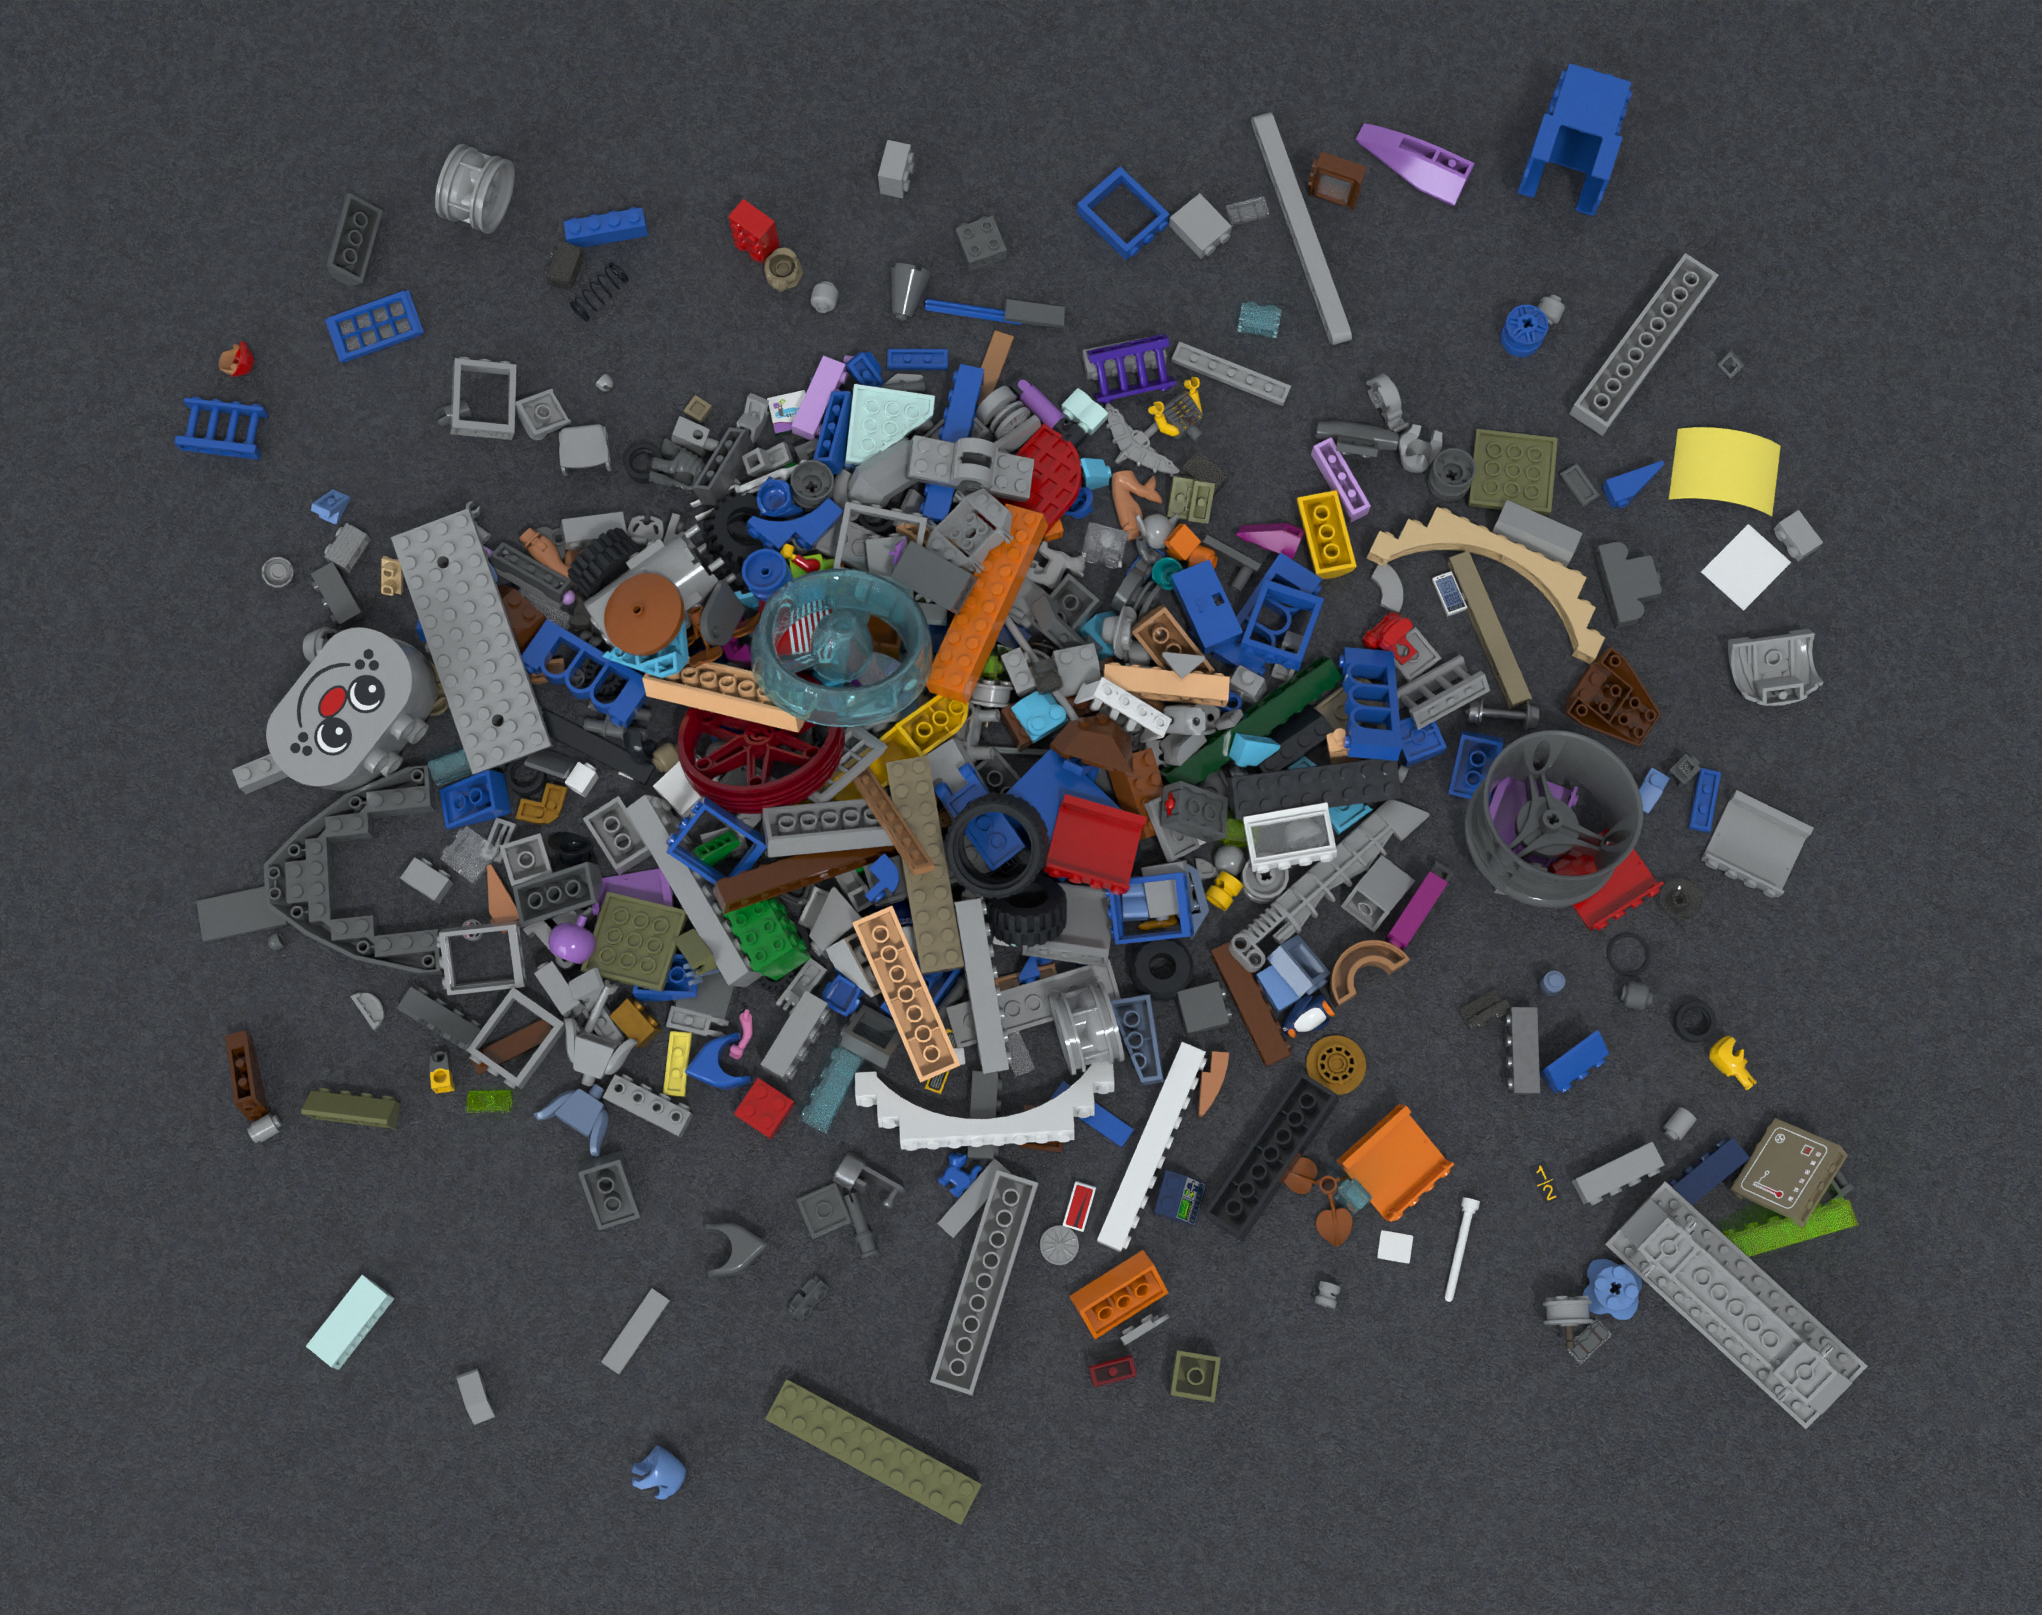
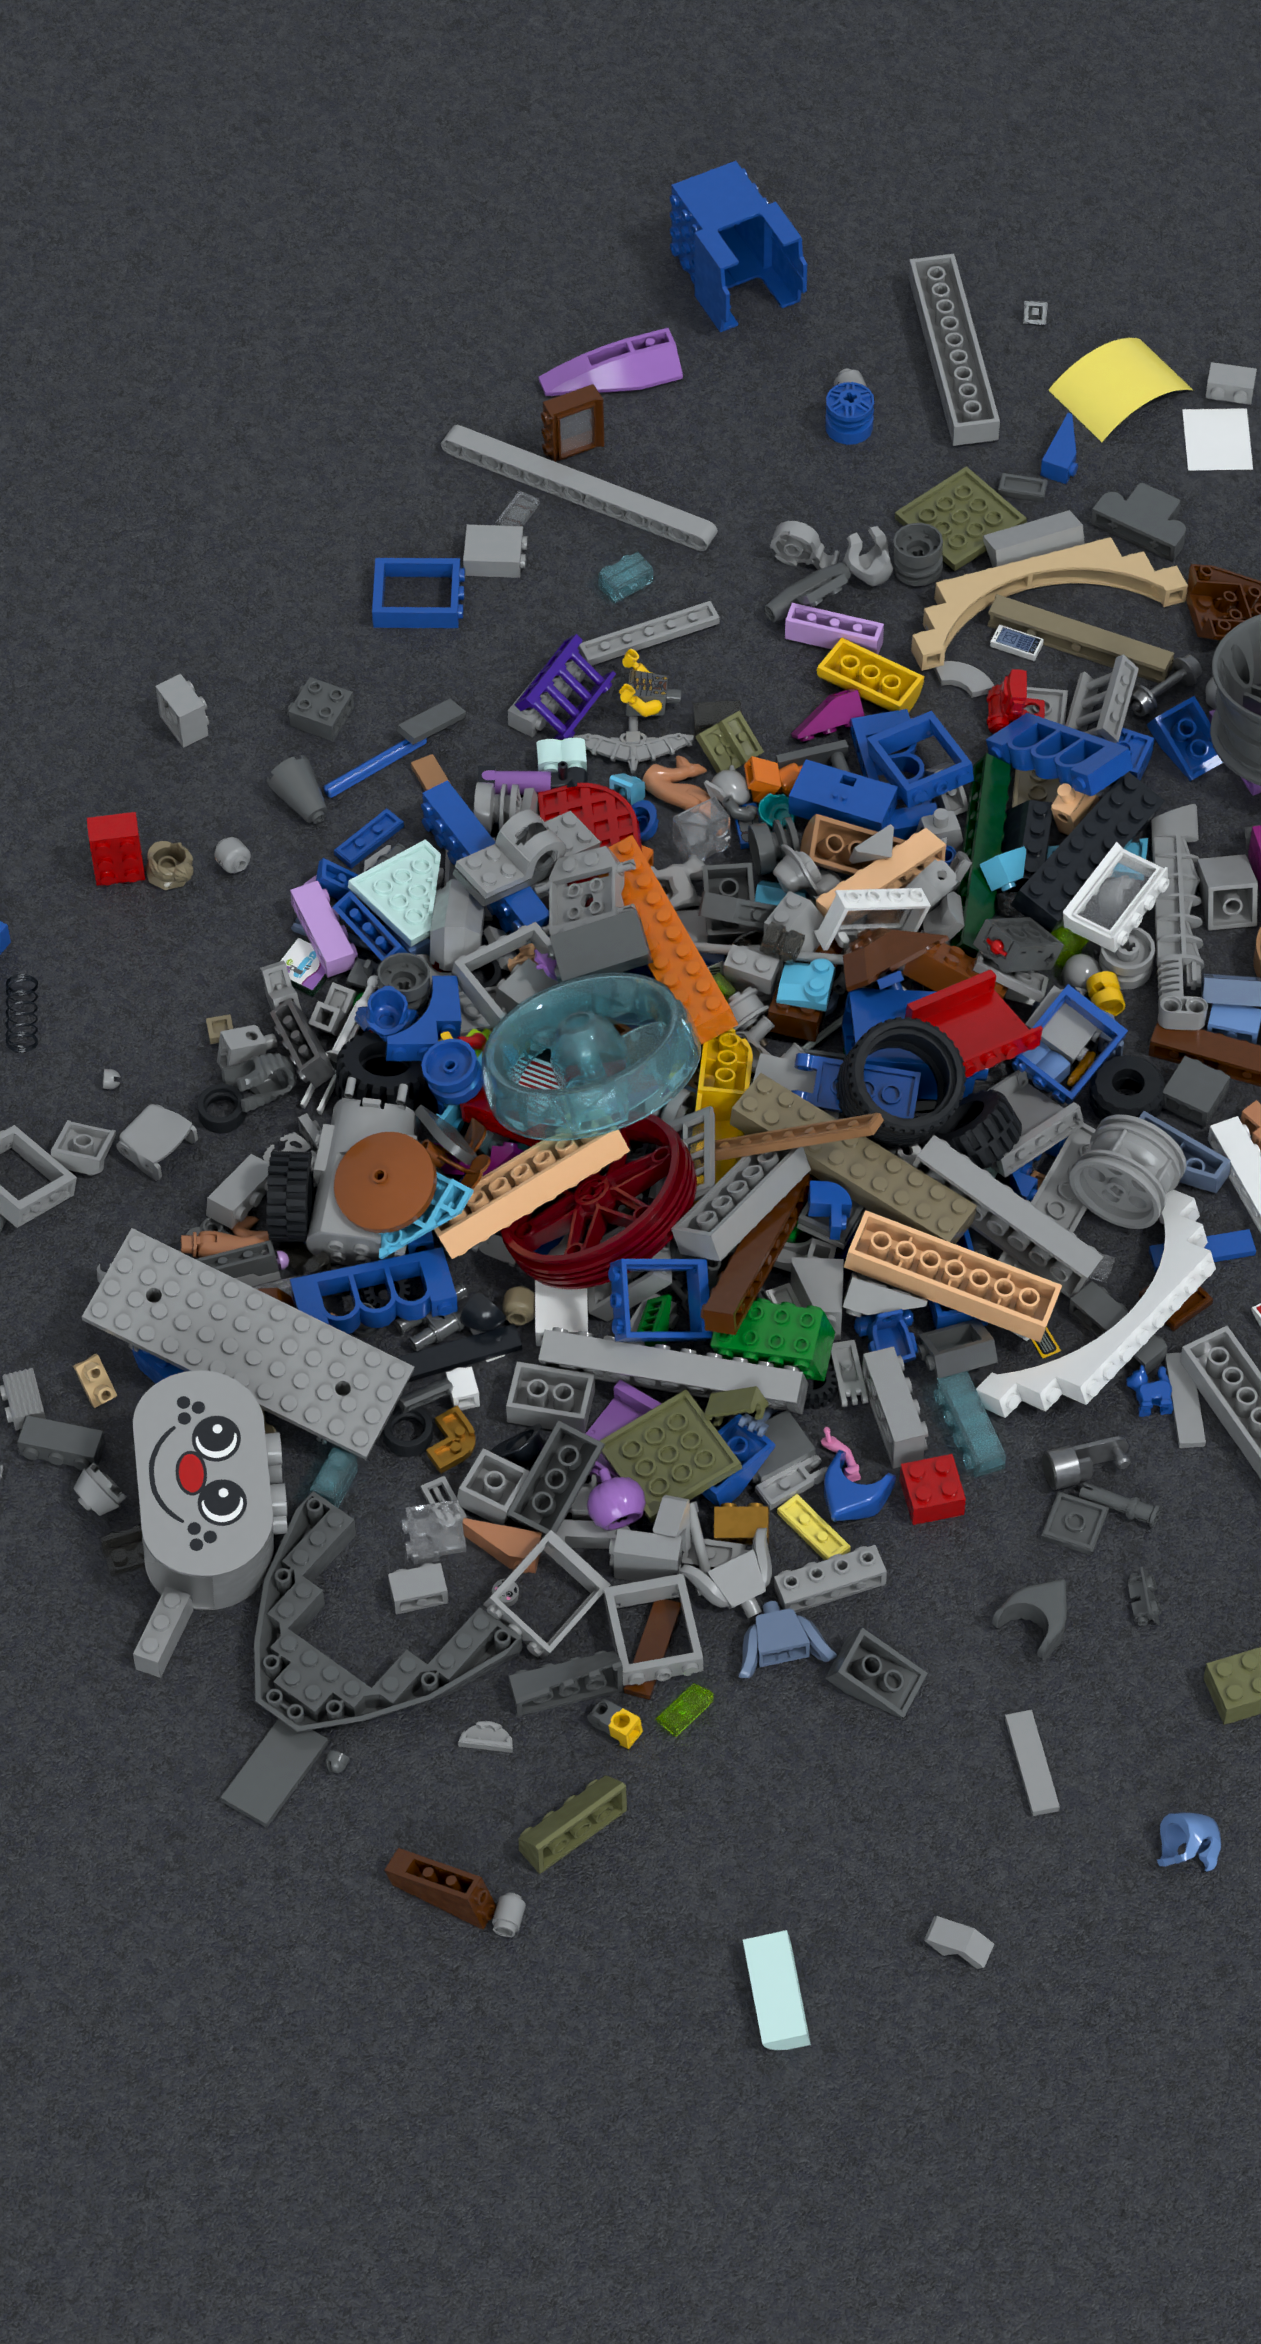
camera: 45 degrees left, 20 degrees down
(475, 799) = (384, 1489): blue slope -> none

